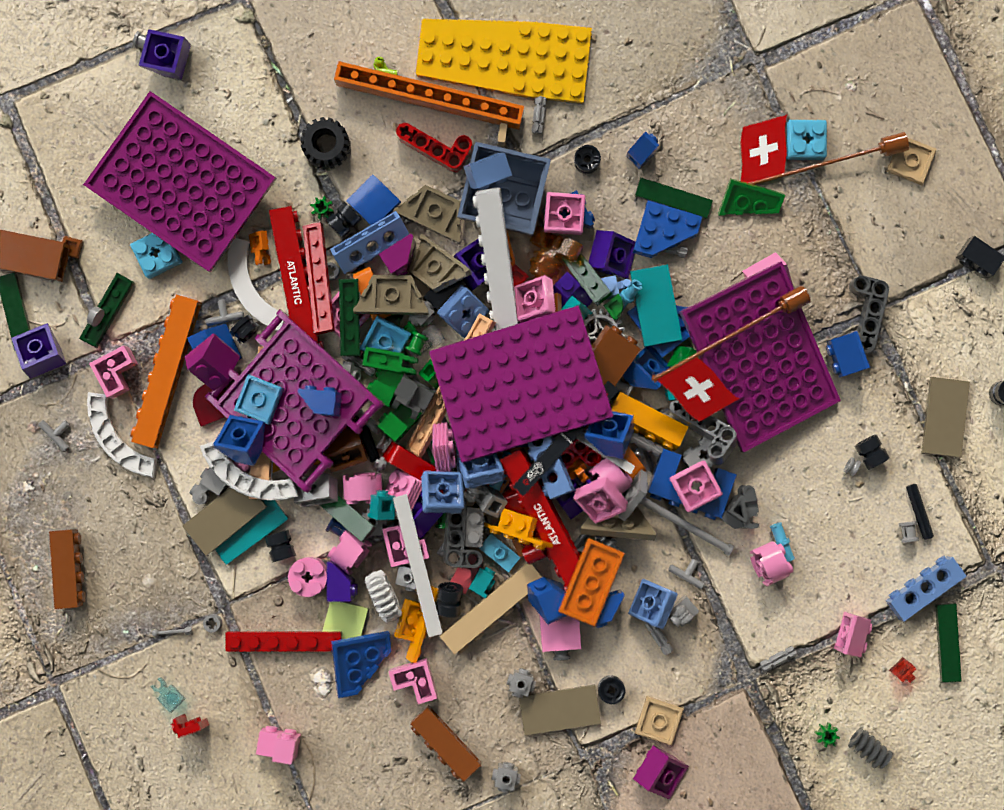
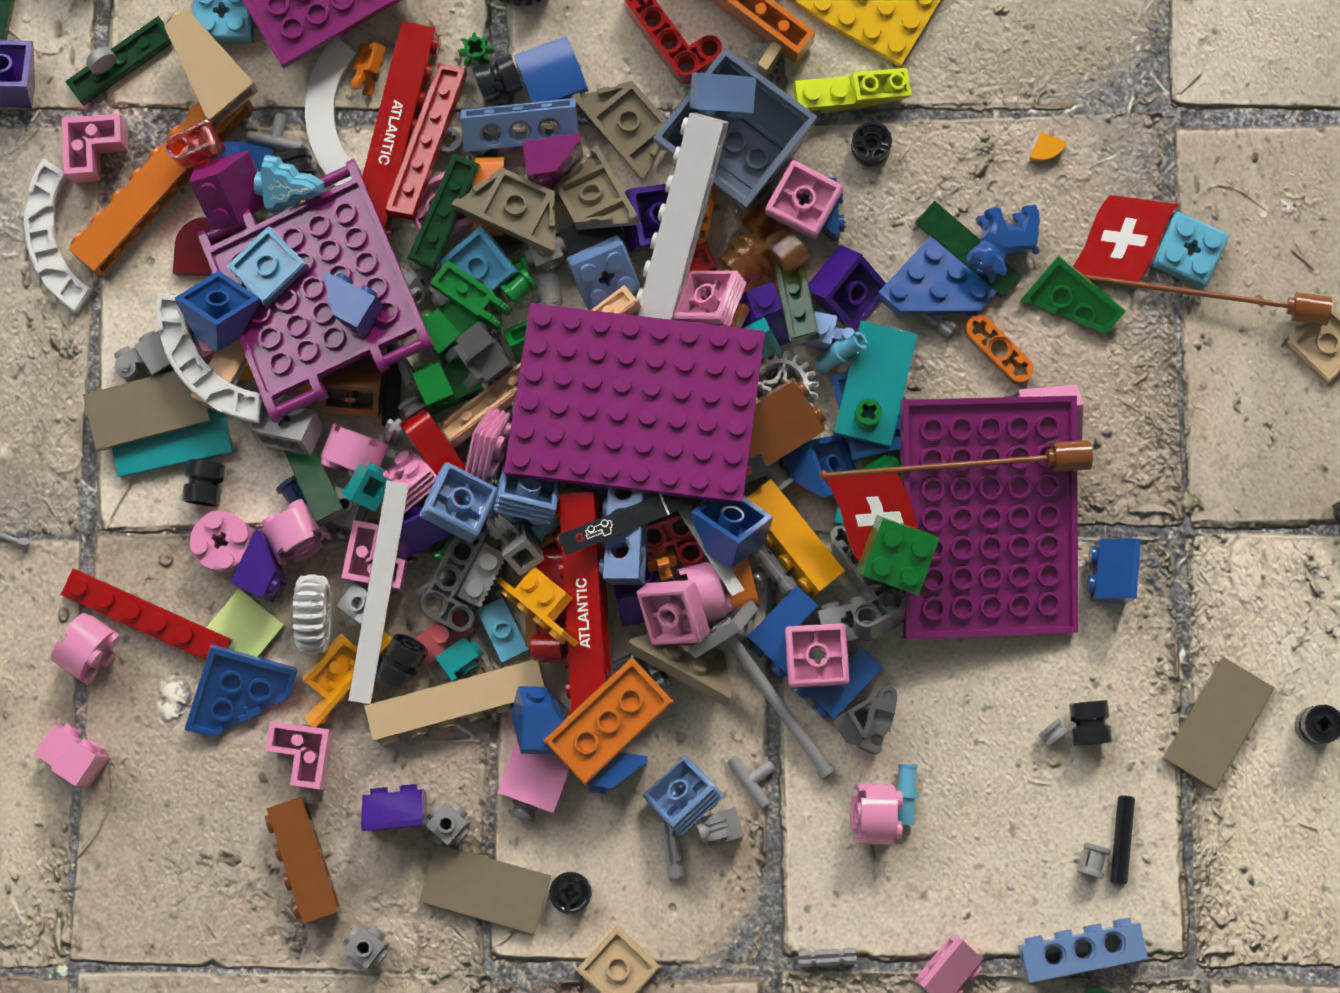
camera: 25 degrees right, 5 degrees down
(167, 294) = (211, 71): none -> tan slope
(182, 341) = (200, 144): none -> clear red piece
(217, 618) = (69, 544): light grey bush -> none
(245, 344) = (284, 185): none -> medium azure rock
(256, 677) = (85, 648): none -> bright pink brick
(485, 689) = (394, 809): none -> dark purple slope
(539, 113) = (832, 54): light grey axle -> none
(561, 131) = (853, 91): none -> neon yellow slope
(615, 307) = (816, 359): green tile -> none
(643, 150) = (953, 163): blue slope -> none
(667, 326) = (867, 423): none -> green bush
(692, 184) = (1004, 240): none -> blue animal
(693, 114) = (1047, 148): none -> light orange tile
(719, 406) = (897, 555): none -> green brick
(730, 261) = (978, 339): none -> orange beam
(867, 315) = (1169, 531): dark grey beam -> none

